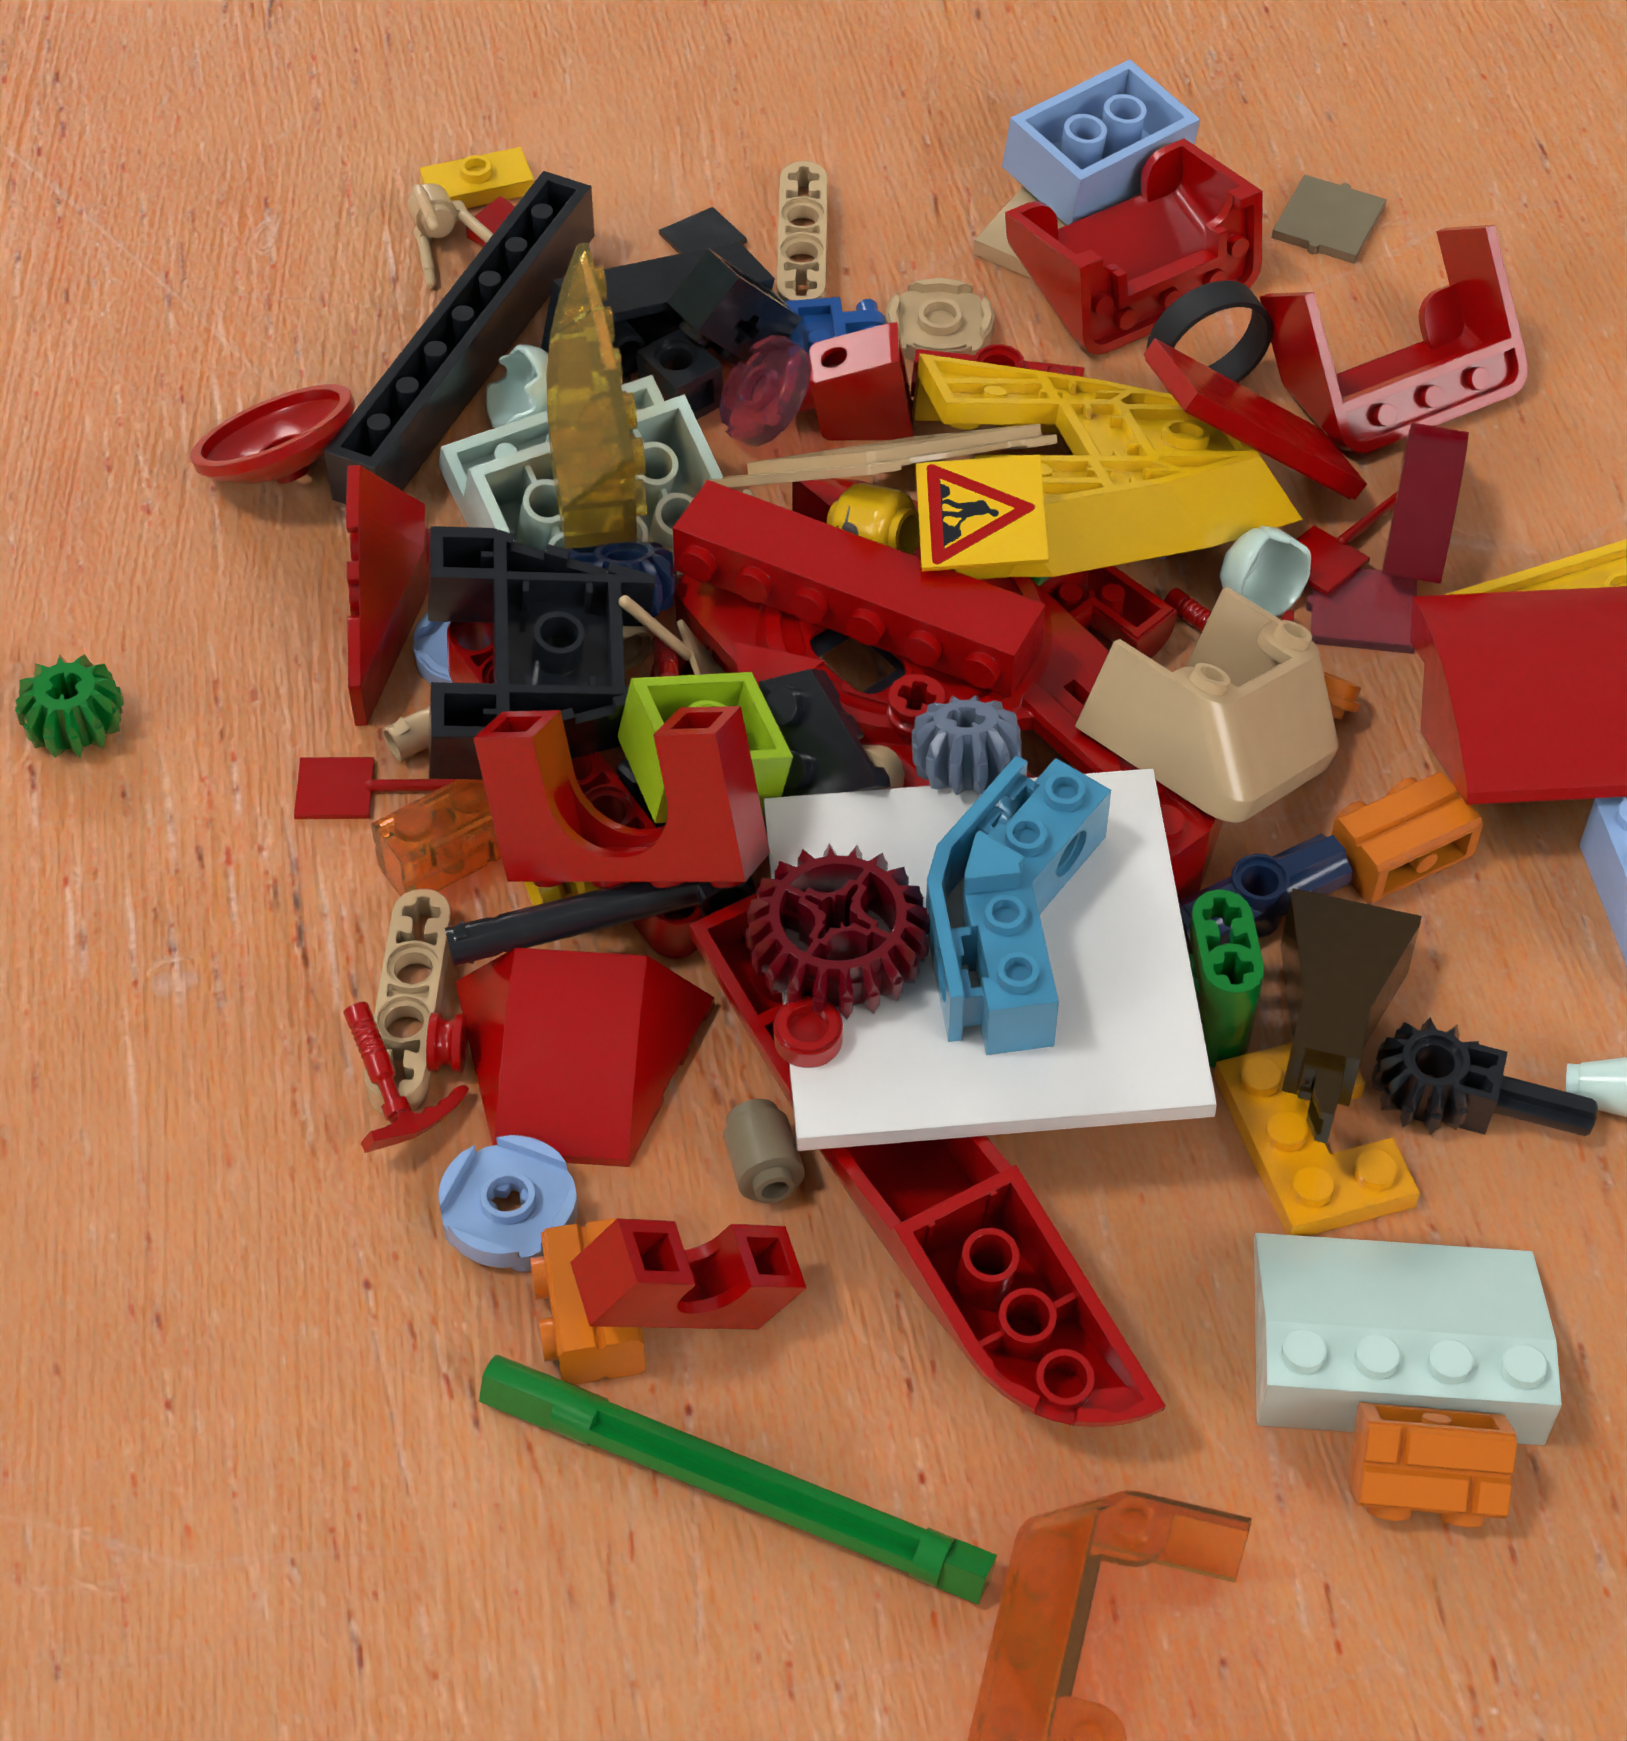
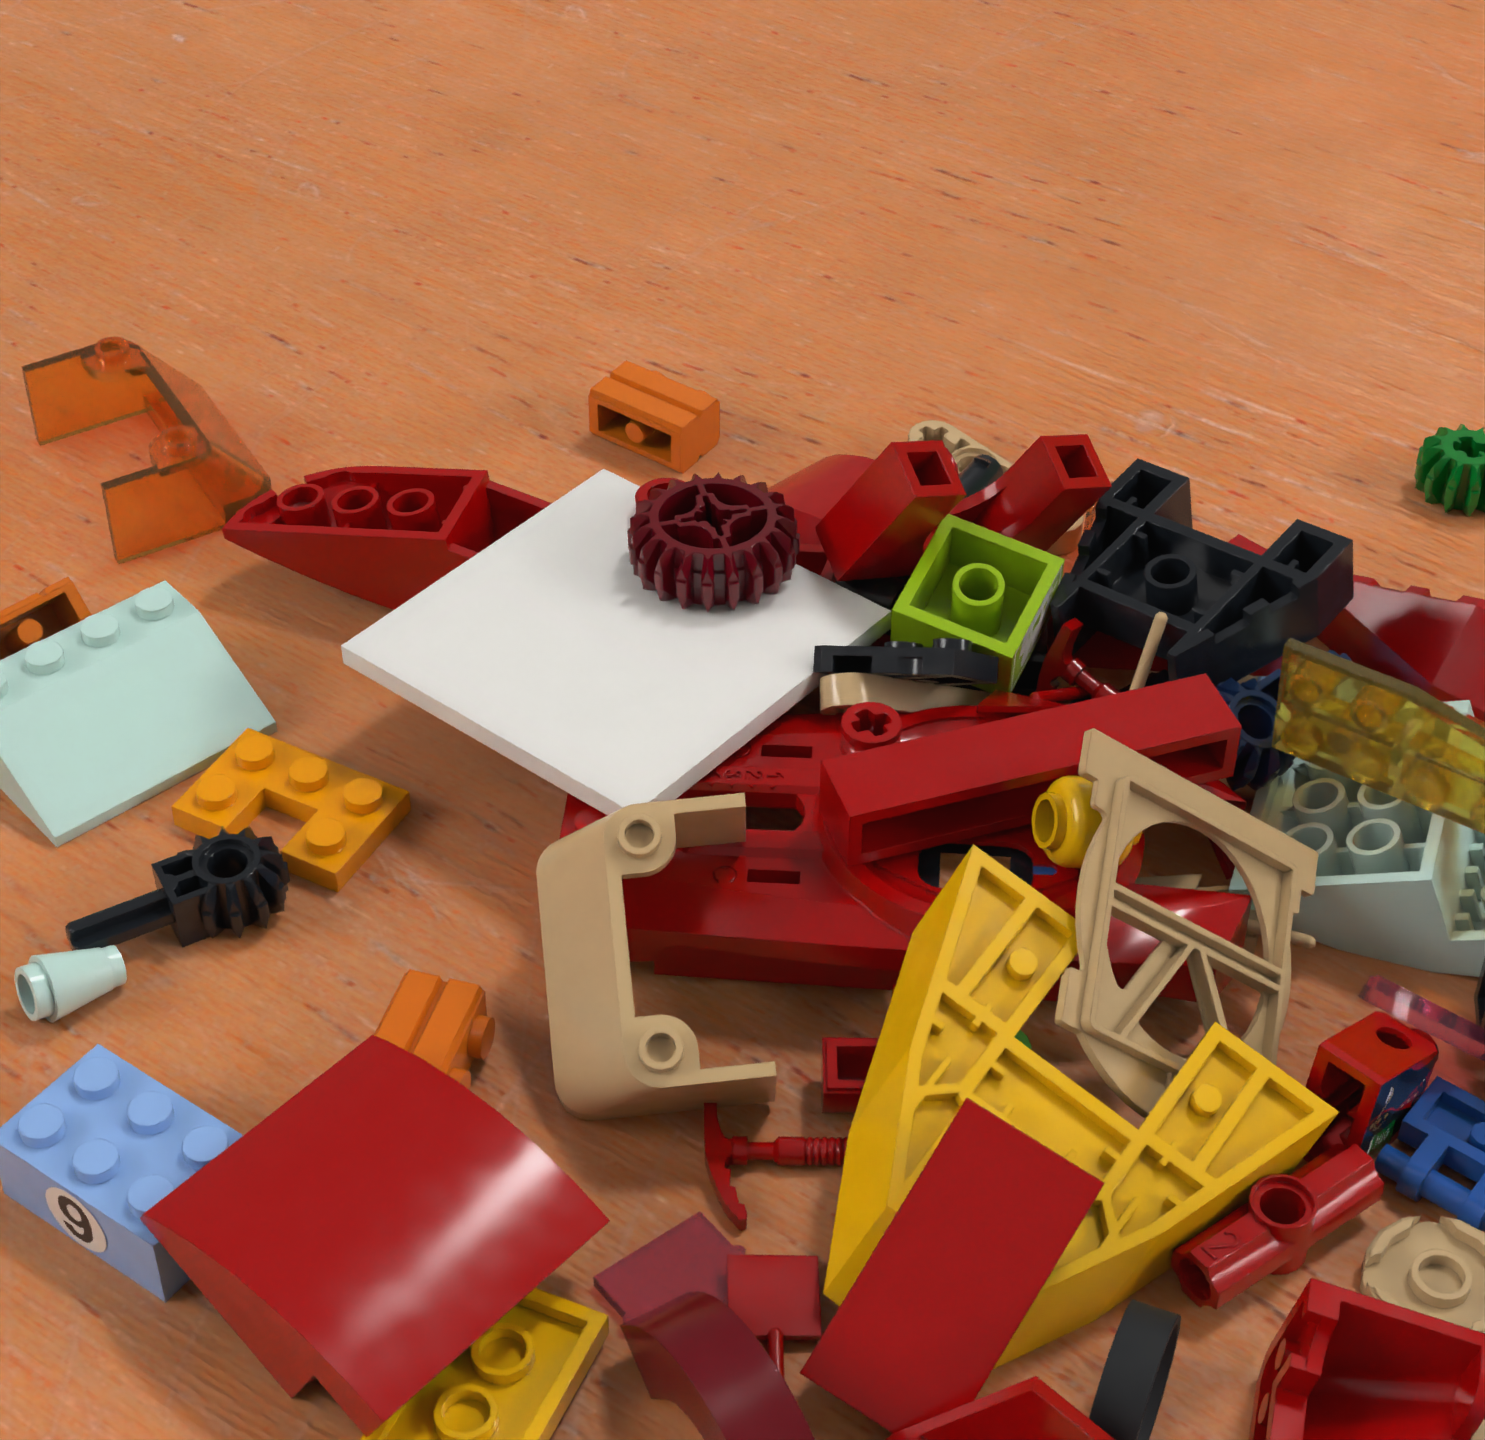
camera: 135 degrees right, 10 degrees down
(380, 1069) = (935, 418): red piece -> none
(497, 1236) = (798, 441): light blue plate -> none
(646, 1278) = (610, 369): red arch -> none
(843, 1521) = (448, 412): green piece -> none
(964, 743) = (784, 707): sand blue gear -> none
(981, 515) = (987, 821): yellow piece -> none
(1012, 869) = (619, 603): dark azure brick -> none
(1225, 975) = (439, 806): green connector -> none
(1267, 568) = (805, 1208): light aqua hair -> none
(1268, 882) = (498, 915): dark blue piece -> none
(1339, 976) = (364, 881): dark brown piece -> none
(1342, 695) = (613, 1143): orange plate -> none

